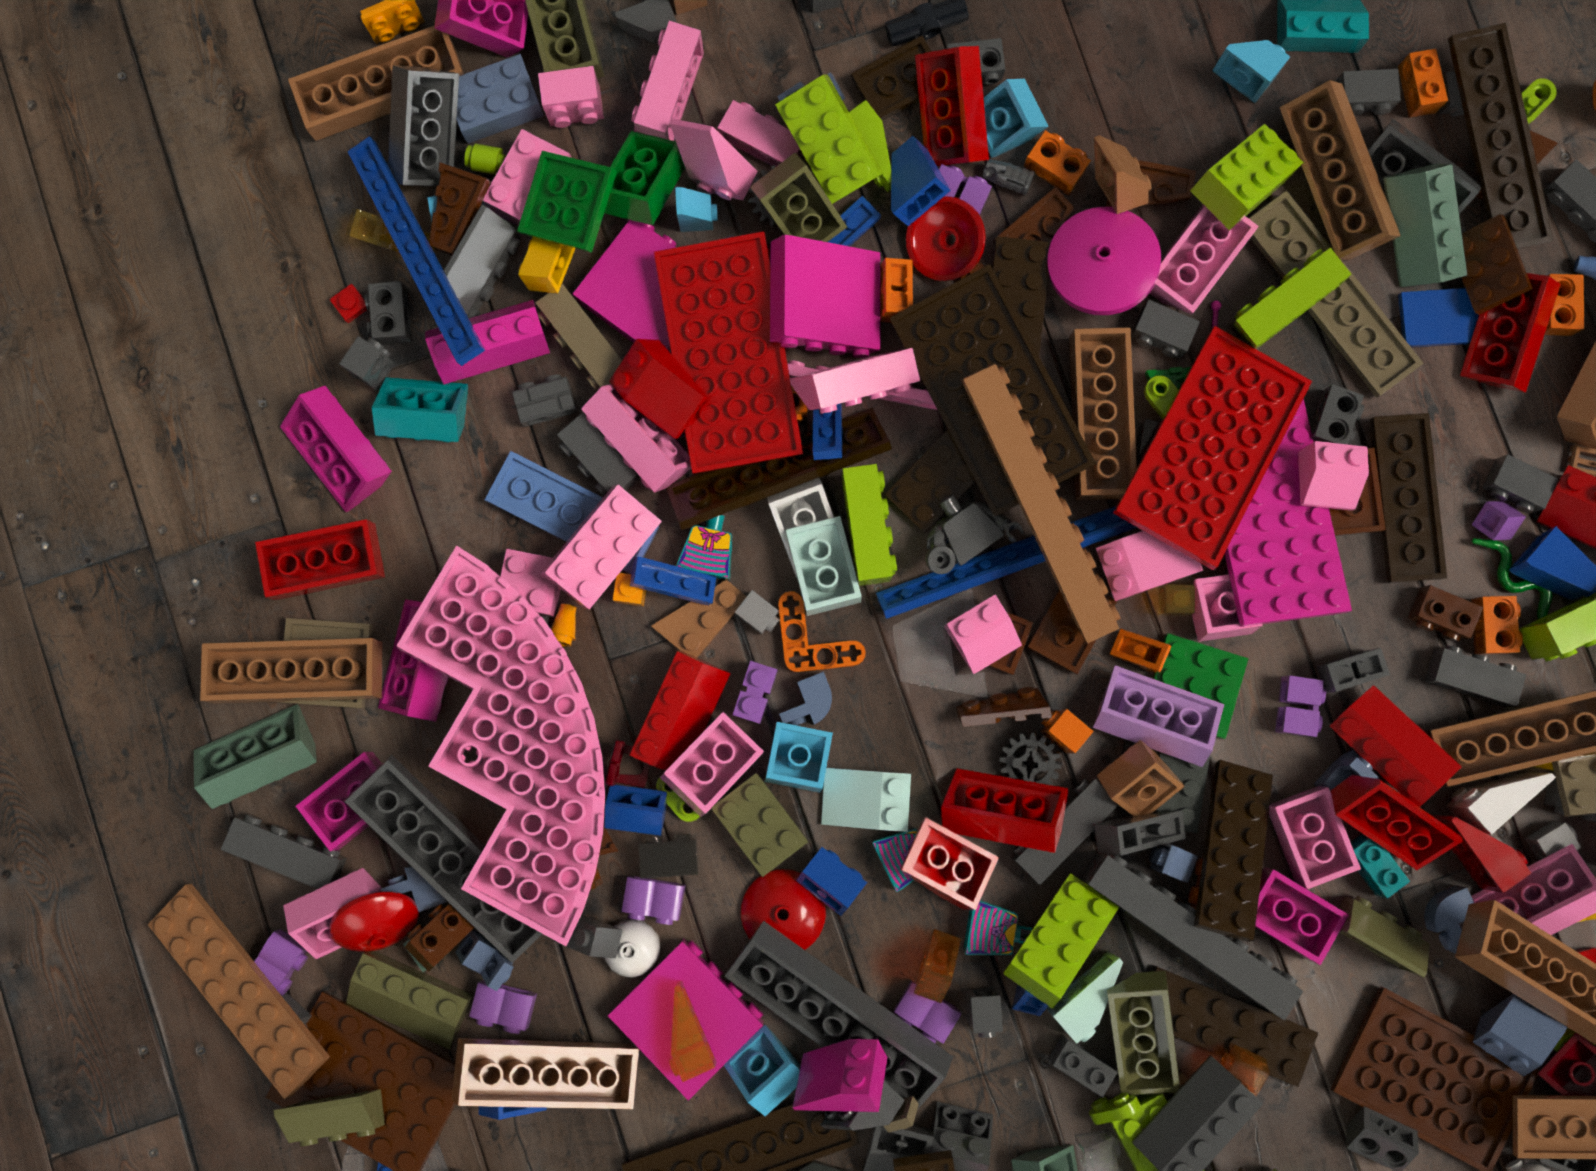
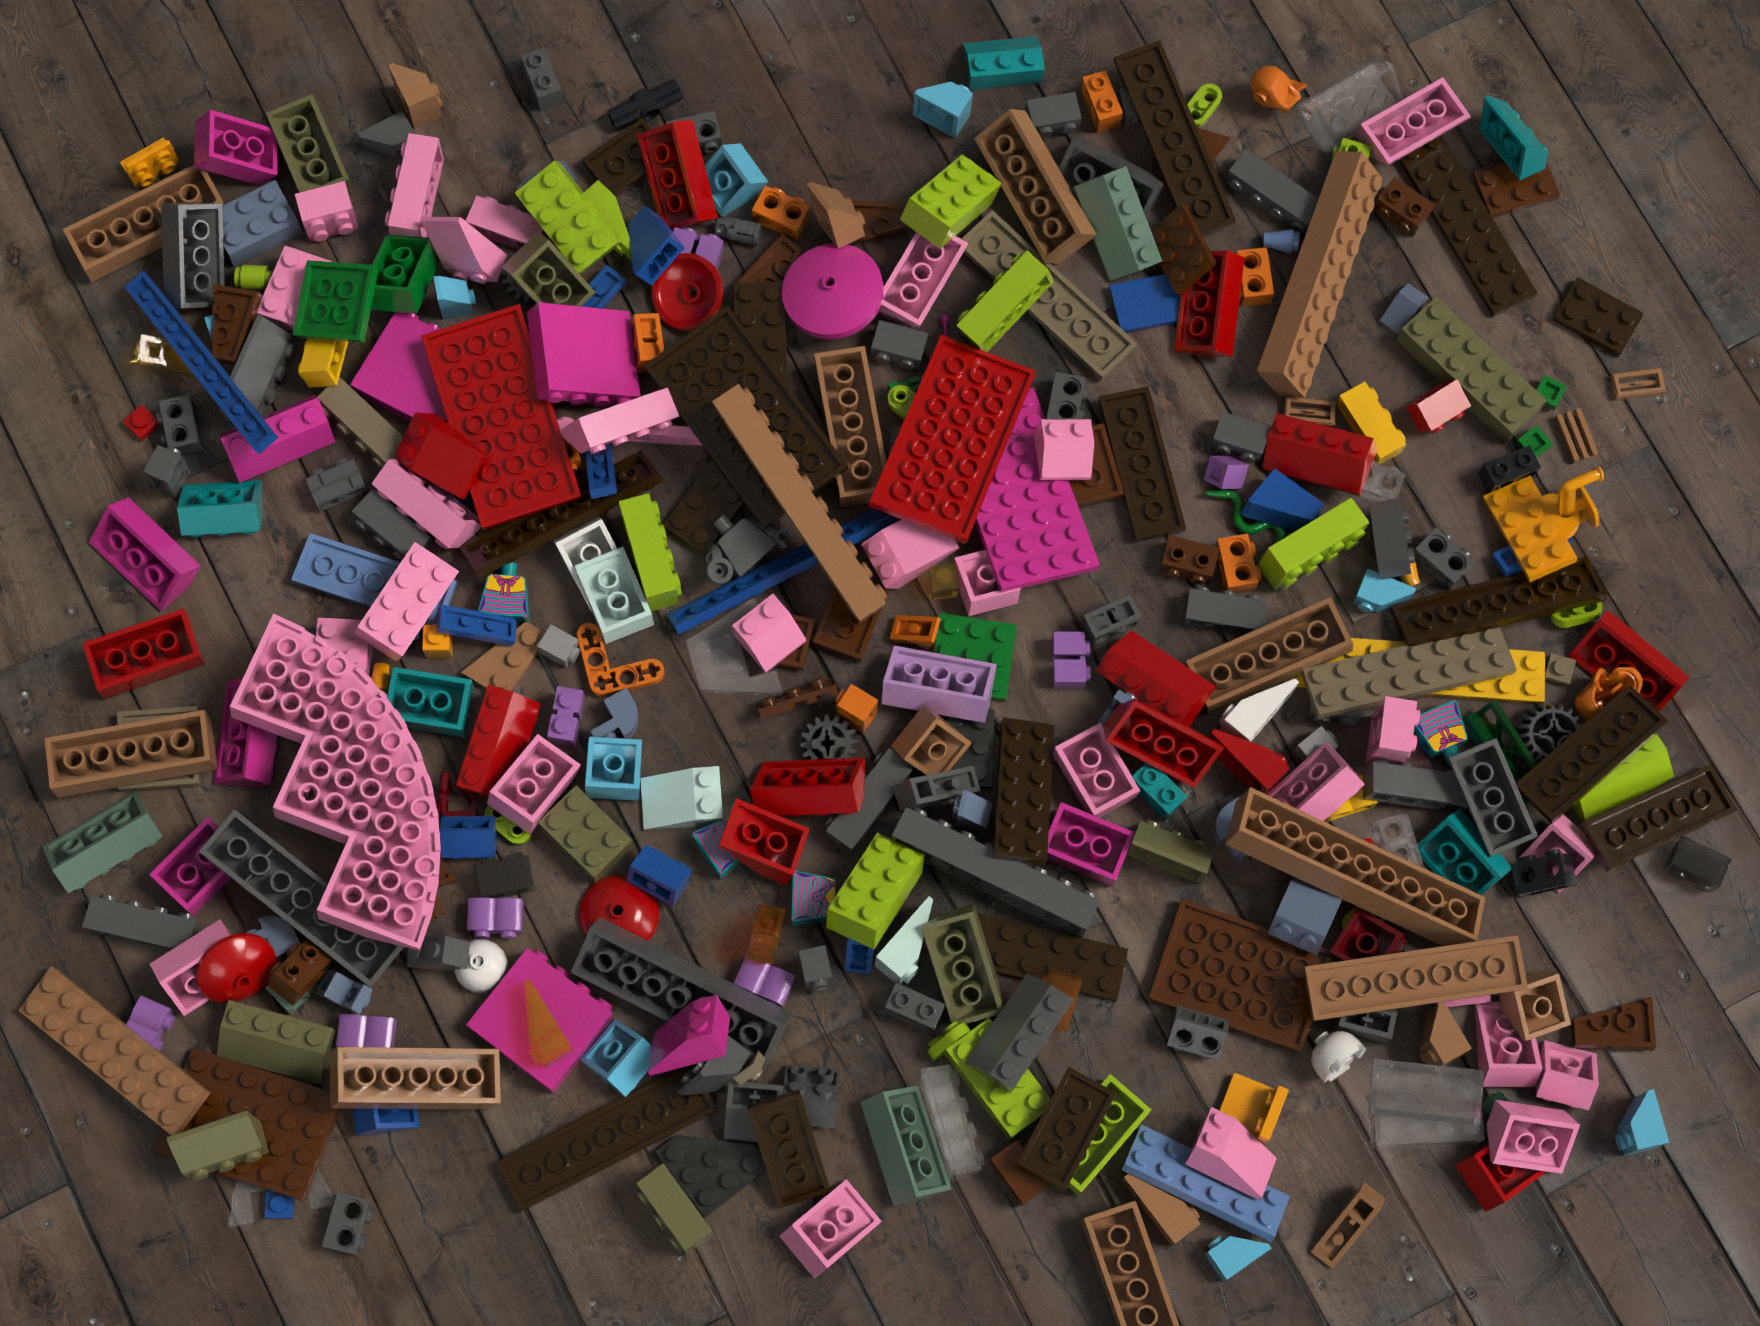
camera: 15 degrees left, 10 degrees down
(613, 656) = (431, 701): none -> teal brick

